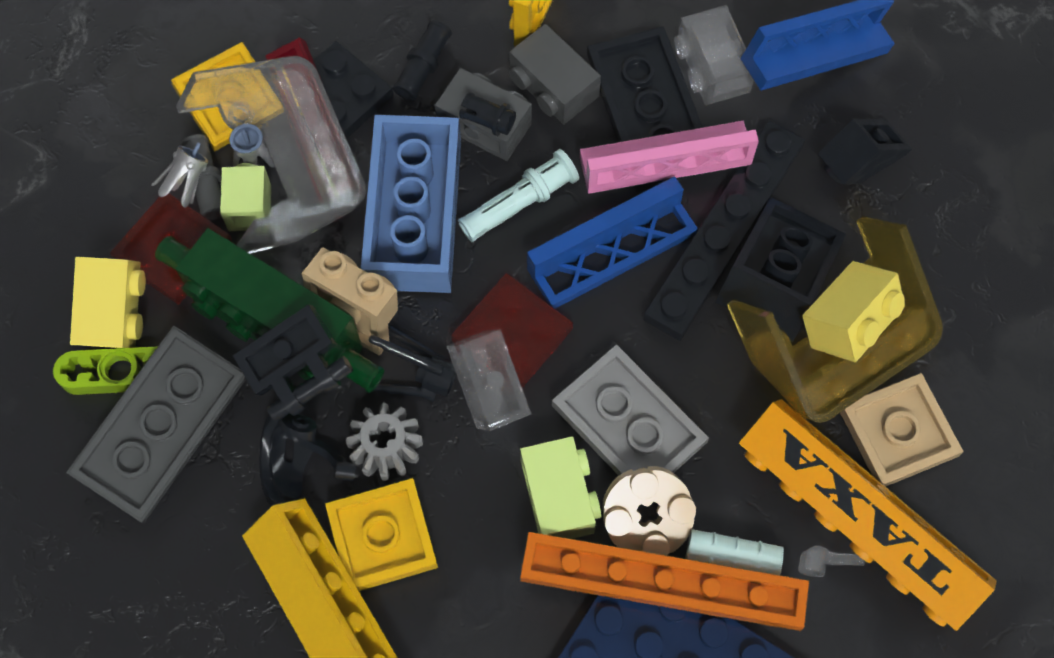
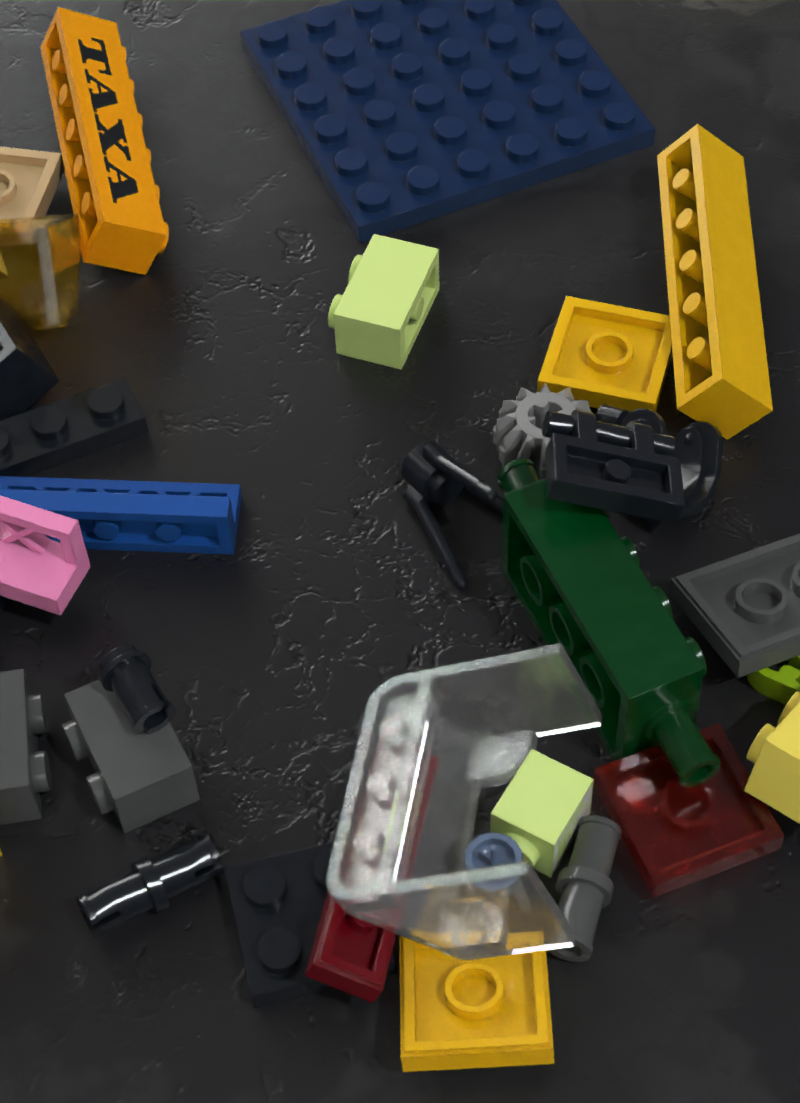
camera: 145 degrees left, 15 degrees down
(185, 163) = (600, 865): flat silver piece -> none
(361, 294) = (488, 563): tan plate -> none
(412, 202) = (302, 672): medium blue brick -> none
(488, 380) = (381, 408): clear brick -> none
(526, 322) = (309, 486): clear red plate -> none
(533, 187) = (144, 623): light aqua pin -> none
(628, 417) = (256, 330): light grey plate -> none
(643, 487) = (316, 232): tan plate -> none
(665, 581) = (352, 164): orange plate -> none
(734, 552) = (258, 174): light aqua axle -> none
(815, 559) = (178, 145): clear hand -> none

